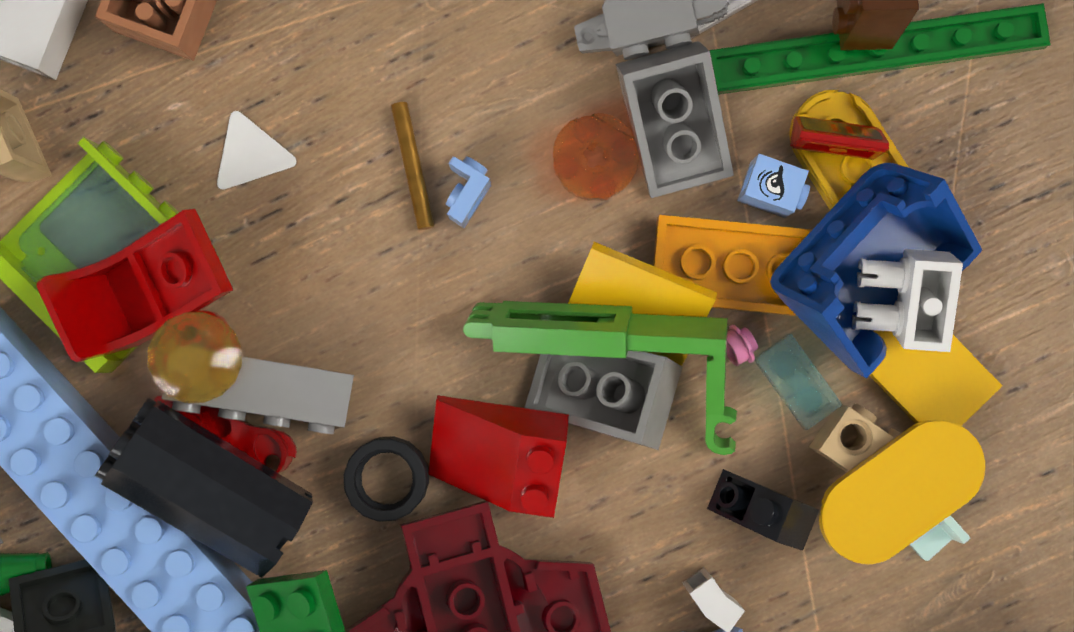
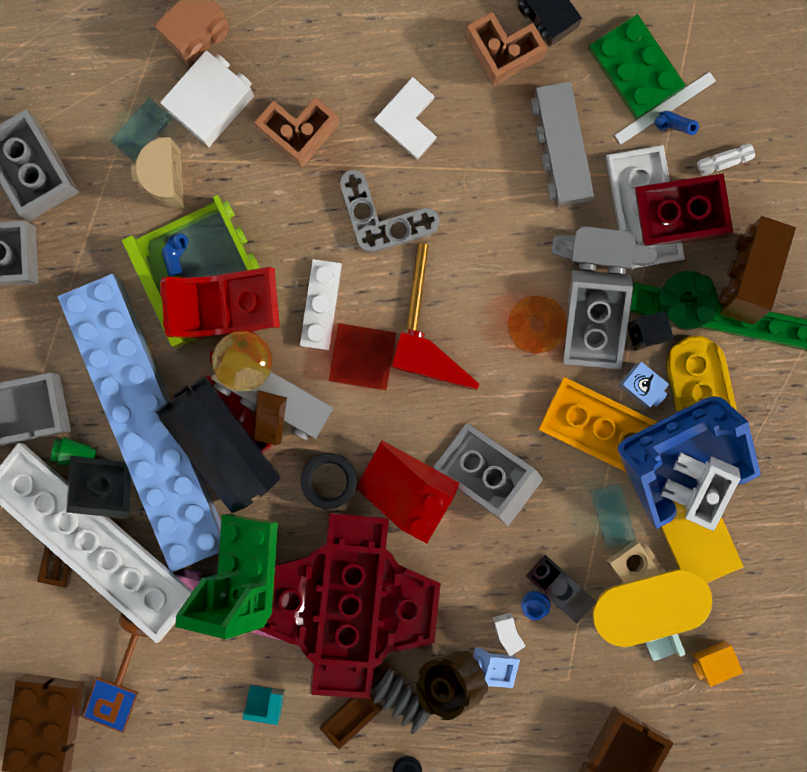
camera: 20 degrees right, 0 degrees up
(54, 239) = (172, 252): none -> blue arm
(249, 153) = (315, 240): white sticker -> none
(266, 422) = (269, 417): none -> reddish brown tile
(288, 239) = (321, 304): none -> white plate
(320, 104) = (372, 223): none -> light grey beam
(370, 289) = (362, 356): none -> clear red plate
(457, 260) = (425, 359): none -> red slope
(466, 199) = (443, 320): light blue bracket -> none
(611, 333) = (505, 441): bright green hinge -> none
(626, 281) = (529, 429): yellow tile -> none
(736, 545) = (535, 605): none -> blue plate
(740, 345) = (584, 478): bright pink plate -> none
(754, 107) = (650, 330): none -> black slope
(799, 23) = (700, 288): none -> dark green plate
(838, 138) = (696, 369): red slope -> none
(1016, 534) = (716, 664): none -> light orange brick

